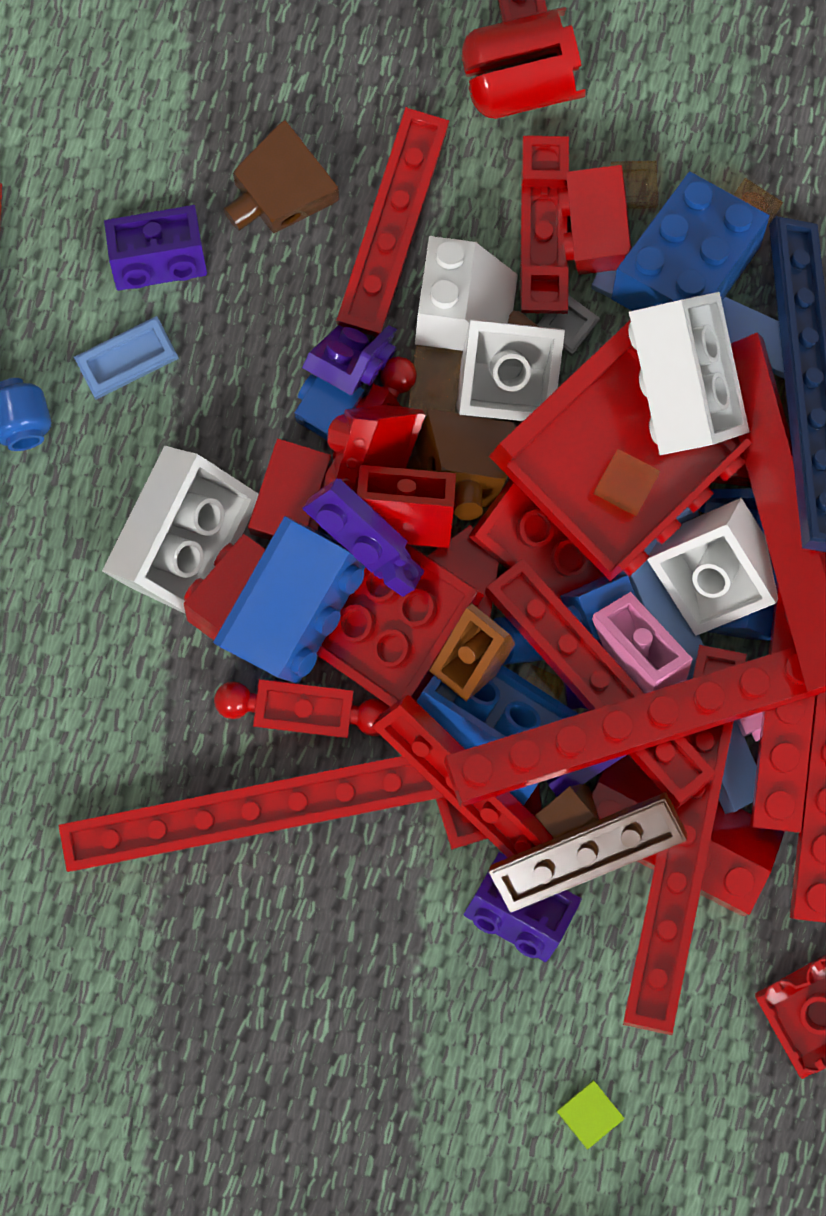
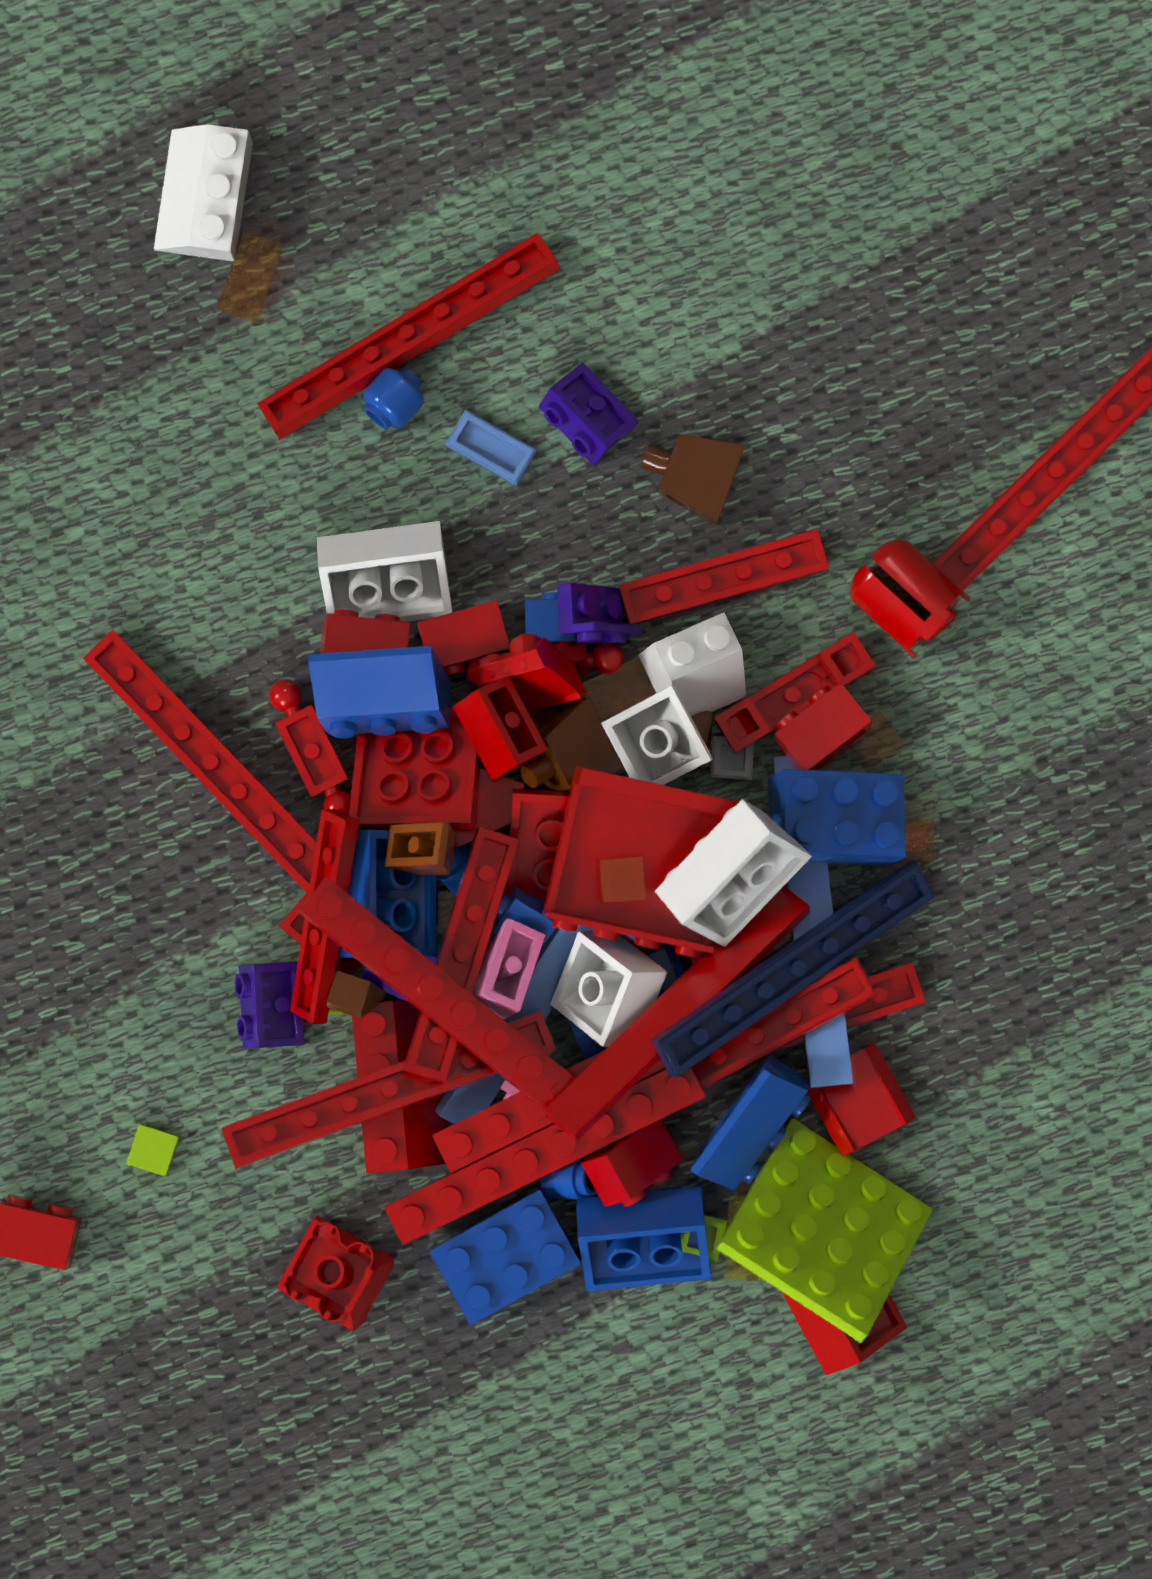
camera: 65 degrees right, 5 degrees up
(365, 535) = (456, 714): dark purple hinge -> none
(588, 852) = (331, 1025): tile -> none

